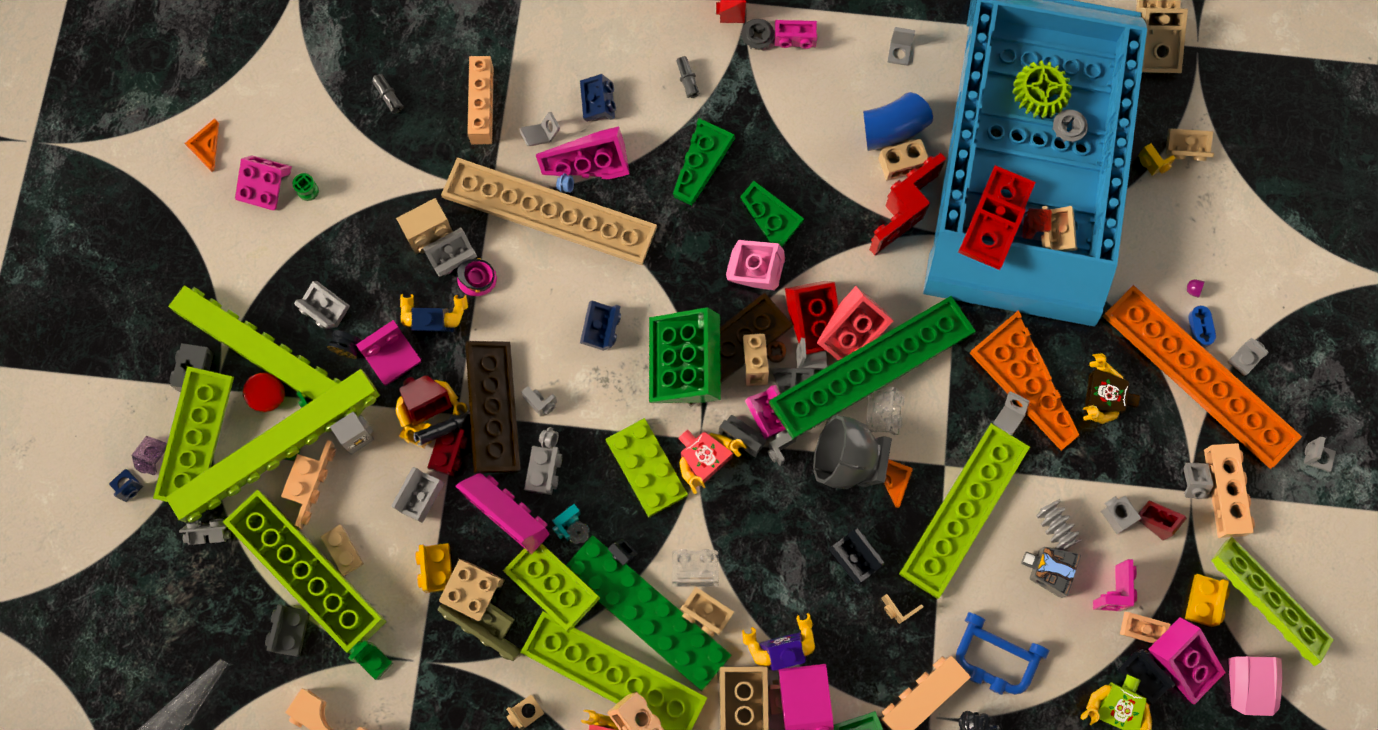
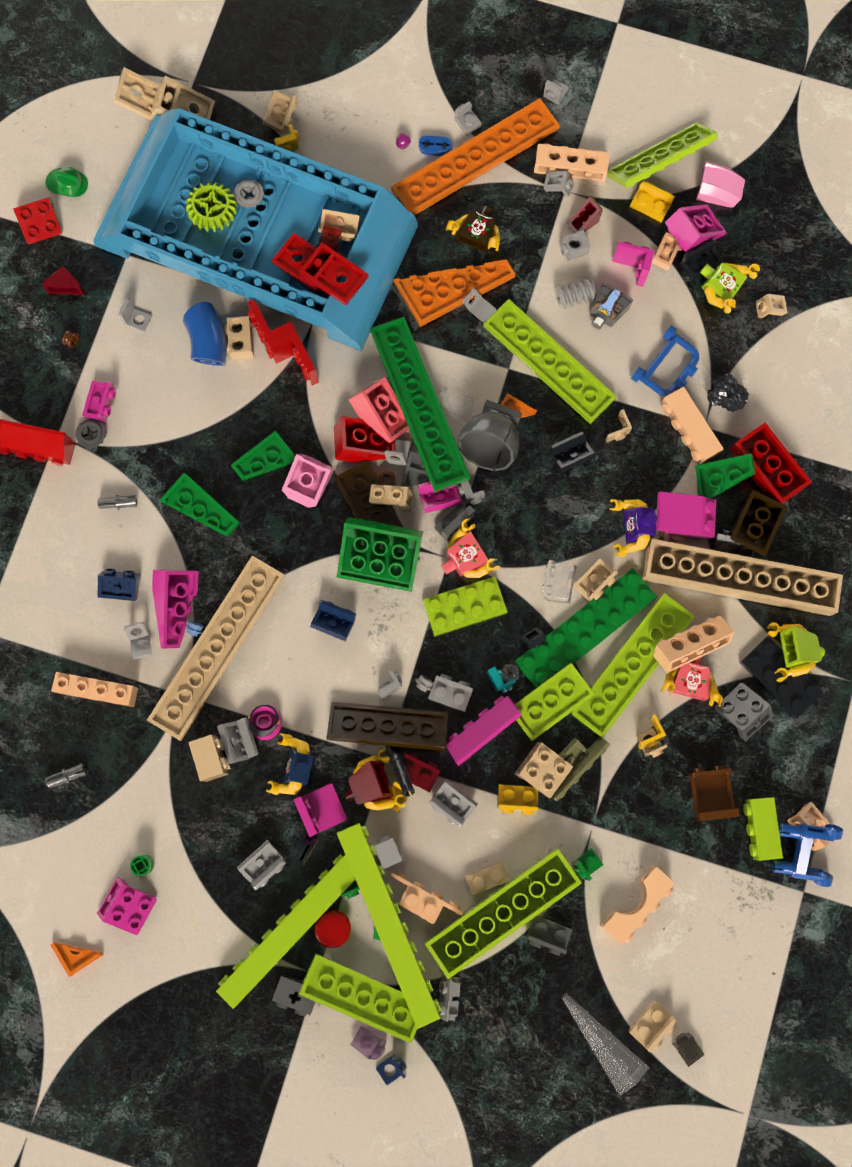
camera: 80 degrees left, 5 degrees up
(525, 713) = (654, 741): none -> yellow bracket

